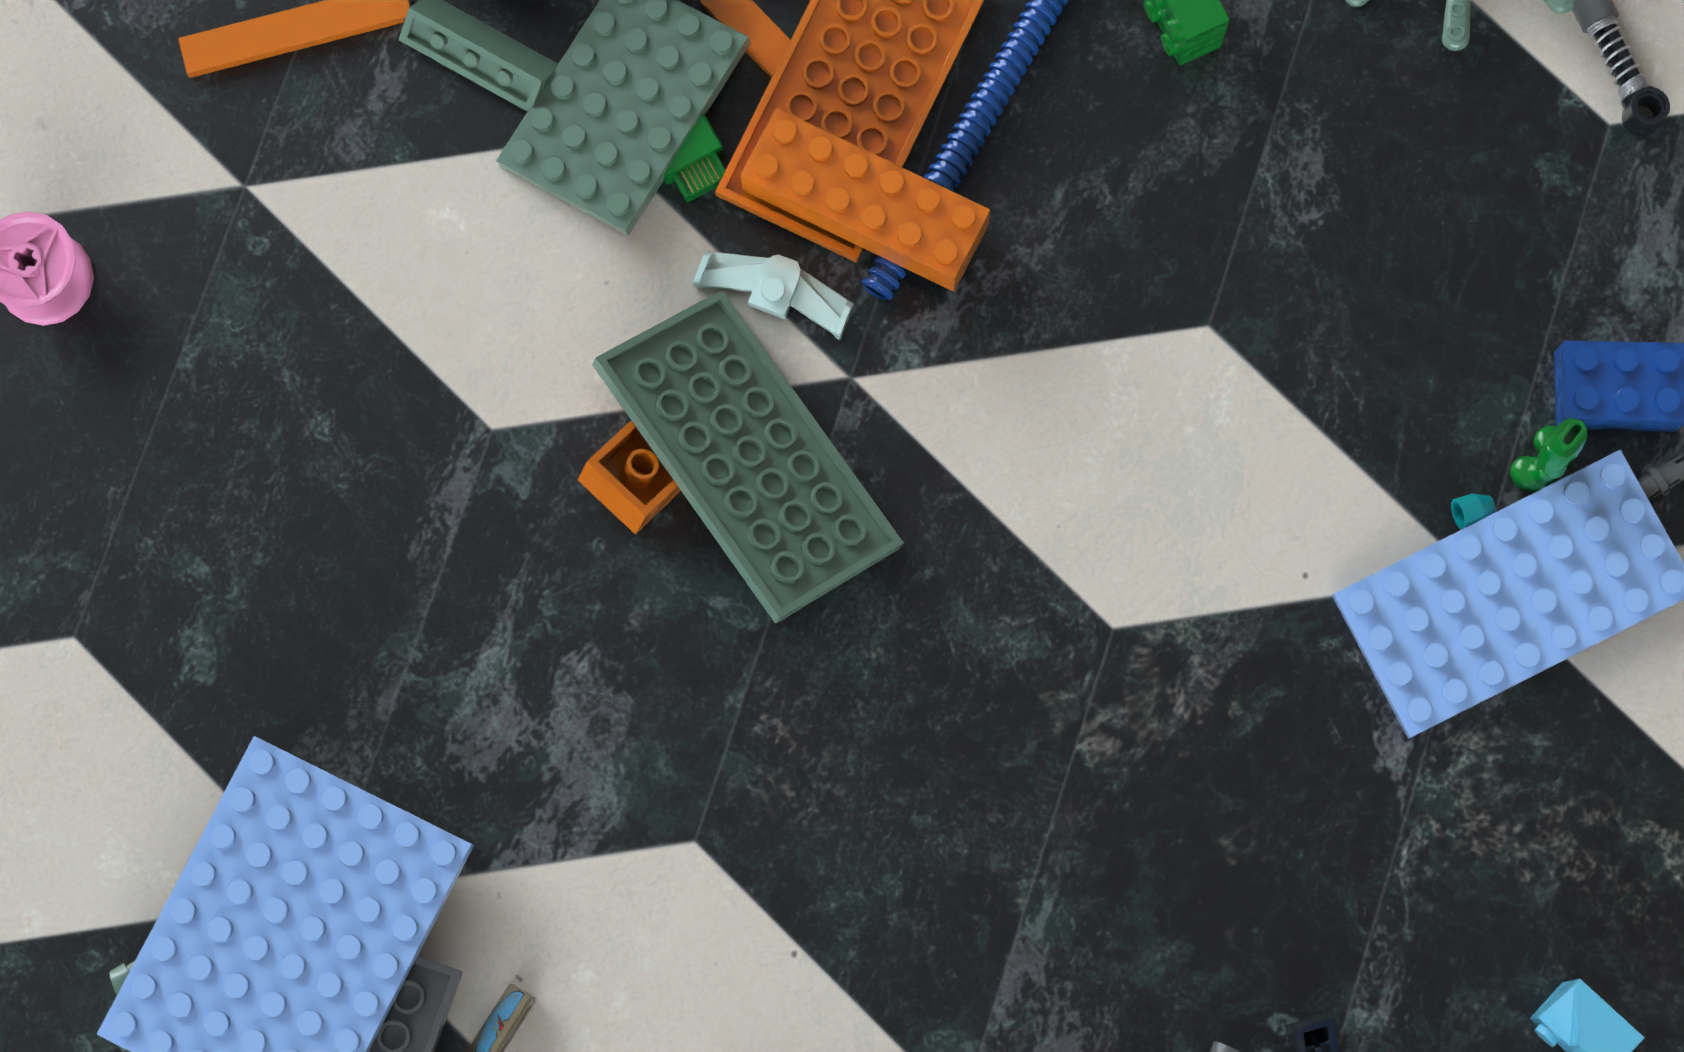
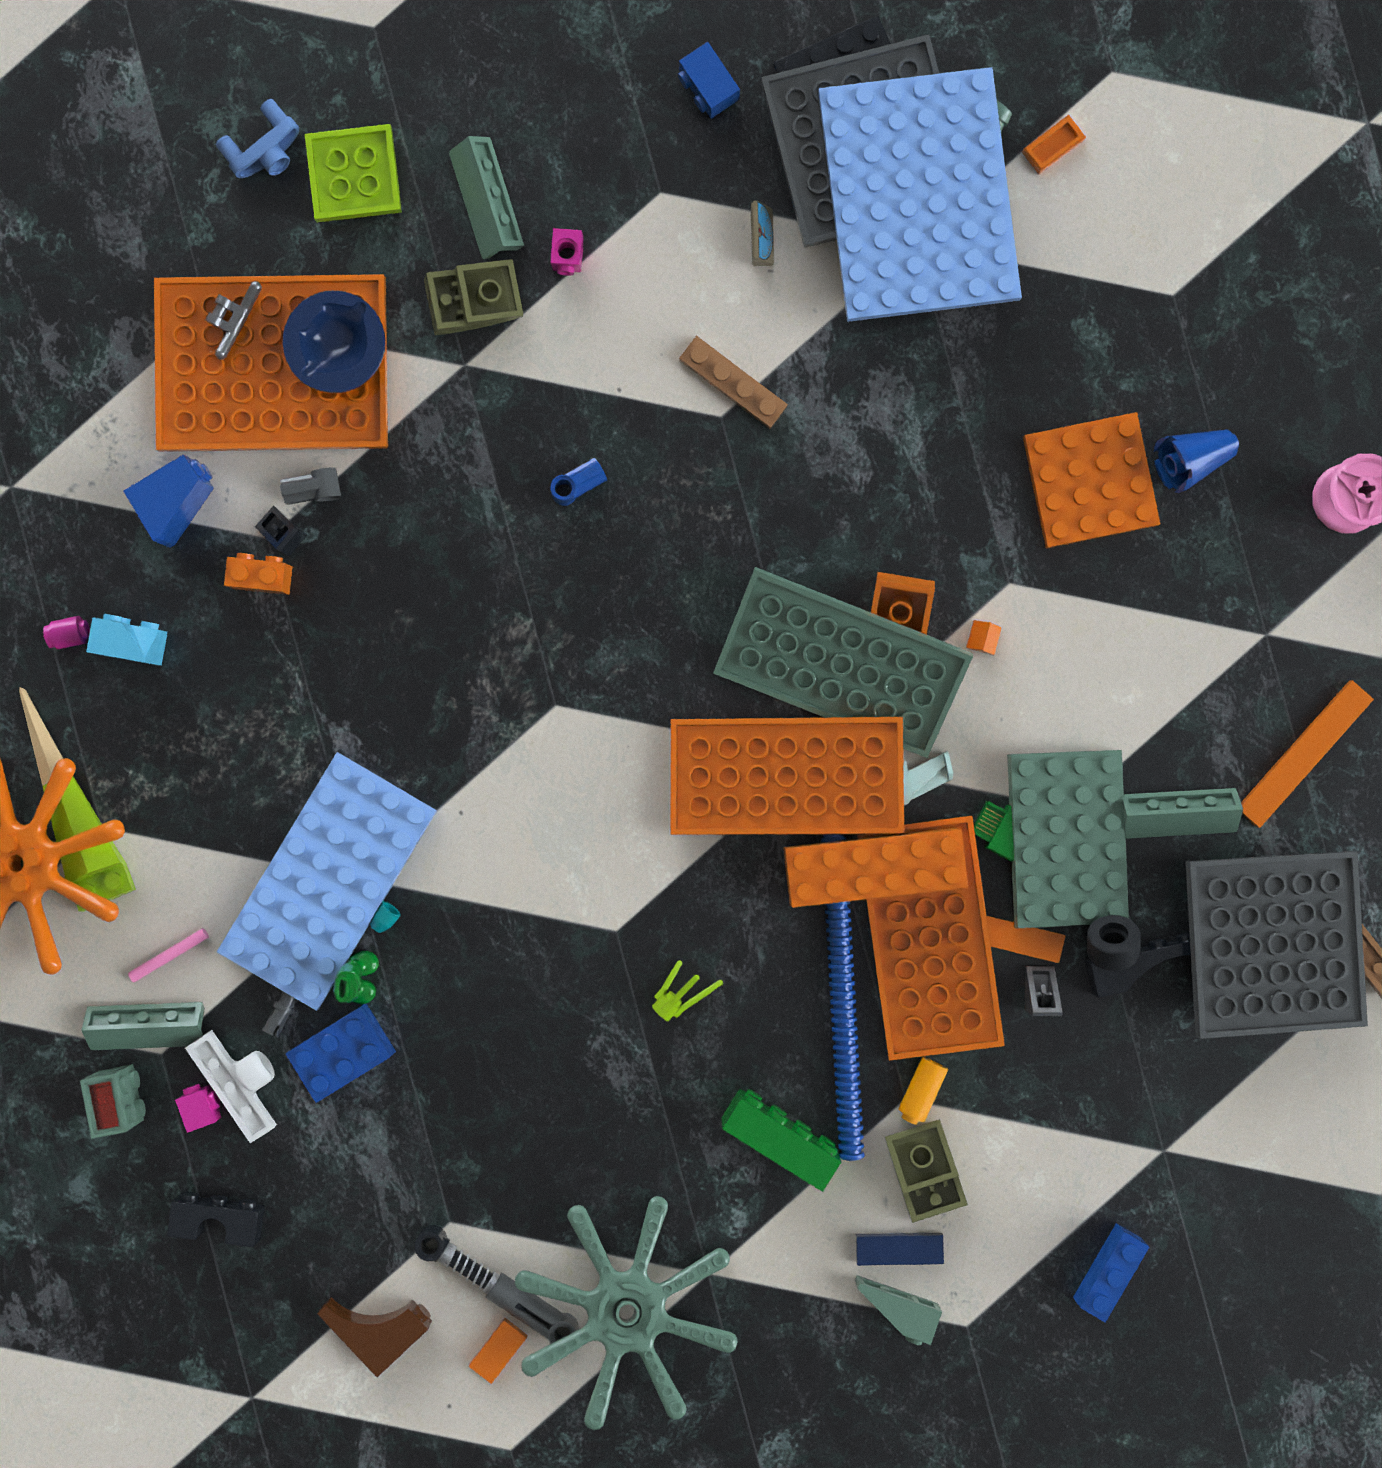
camera: 140 degrees right, 10 degrees up
(84, 906) = (1053, 144): none -> orange tile
(186, 430) = (1193, 456): none -> blue cone
(317, 484) = (1091, 480): none -> orange plate
(564, 385) = (983, 637): none -> orange slope
(653, 871) = (733, 382): none -> medium nougat plate
(897, 367) = (787, 776): none -> orange plate
(912, 870) = (580, 480): none -> blue piece
(1197, 201) = (669, 1004): none -> lime plant
(1375, 1008) = (258, 575): none -> orange brick

